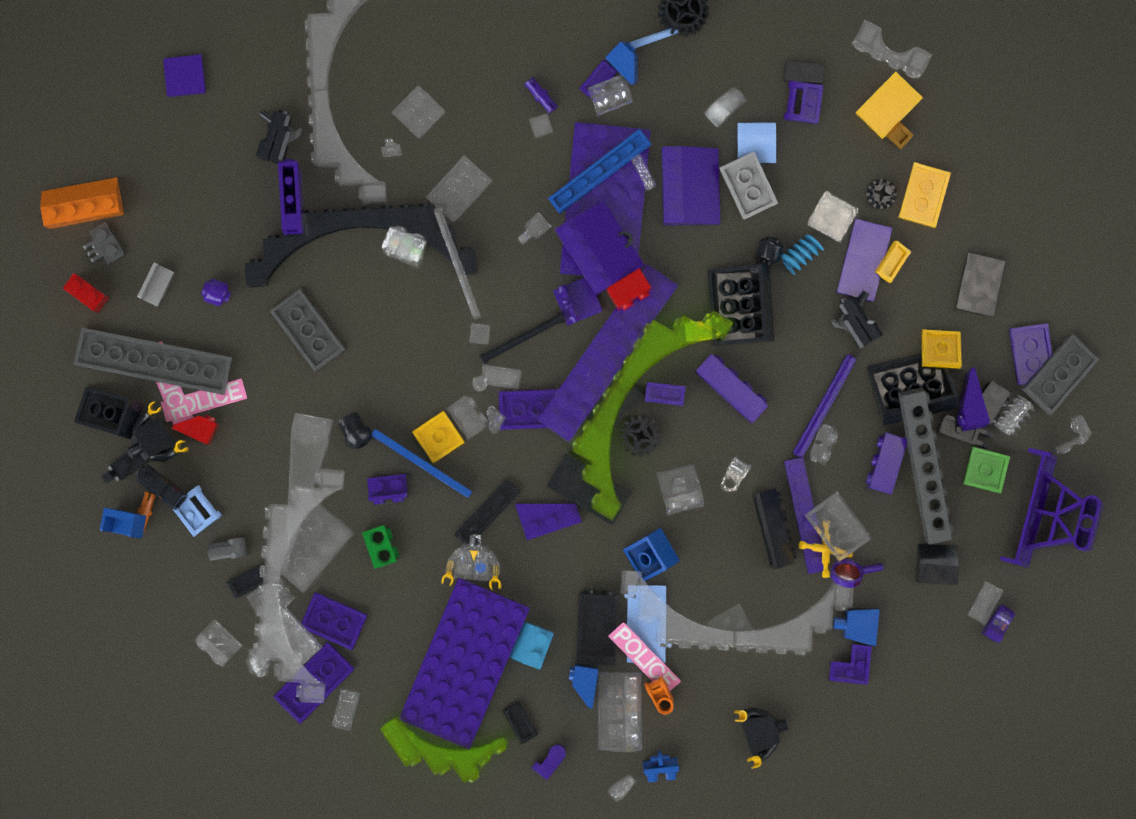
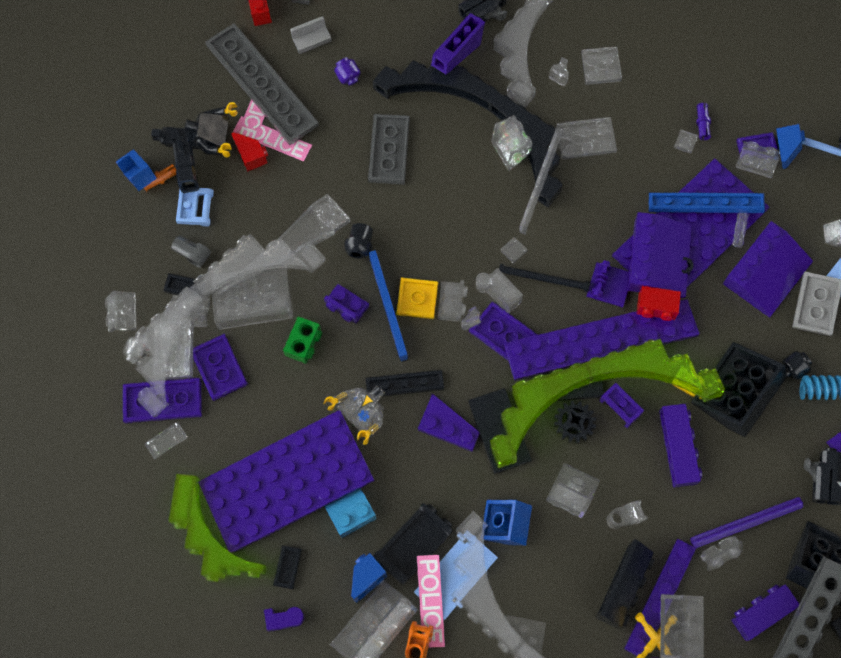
camera: 50 degrees right, 15 degrees down
(108, 412) = (198, 91): black slope -> none
(535, 227) = (621, 207): clear plate -> none

